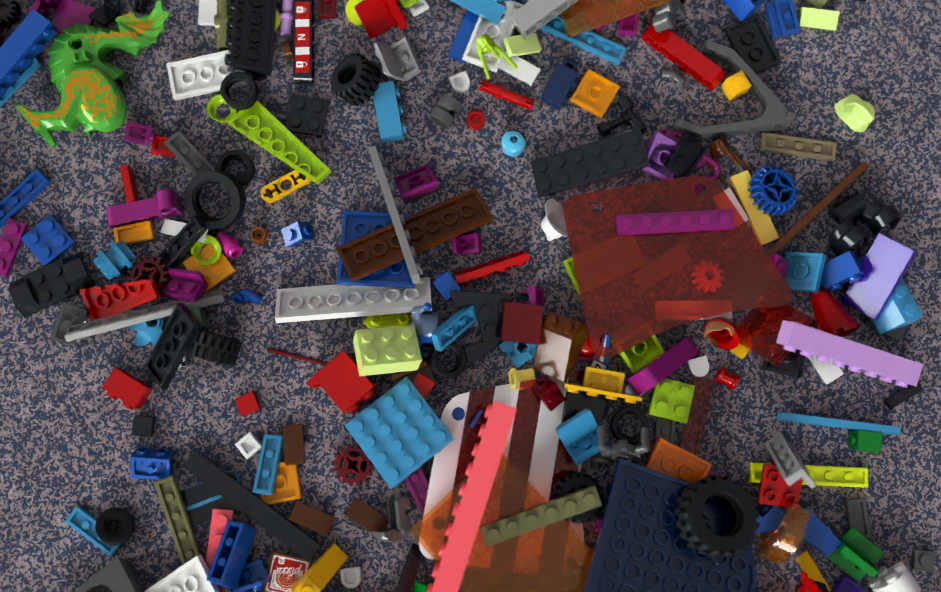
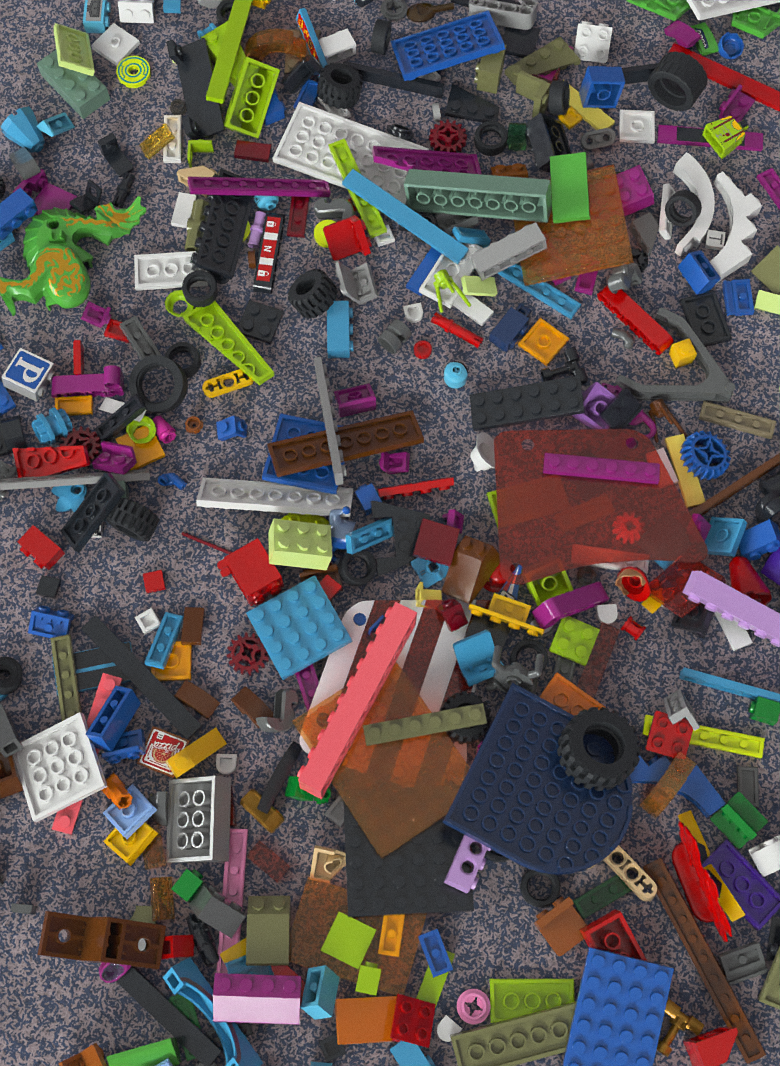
camera: 10 degrees right, 10 degrees down
(81, 209) = (28, 374): none -> piece

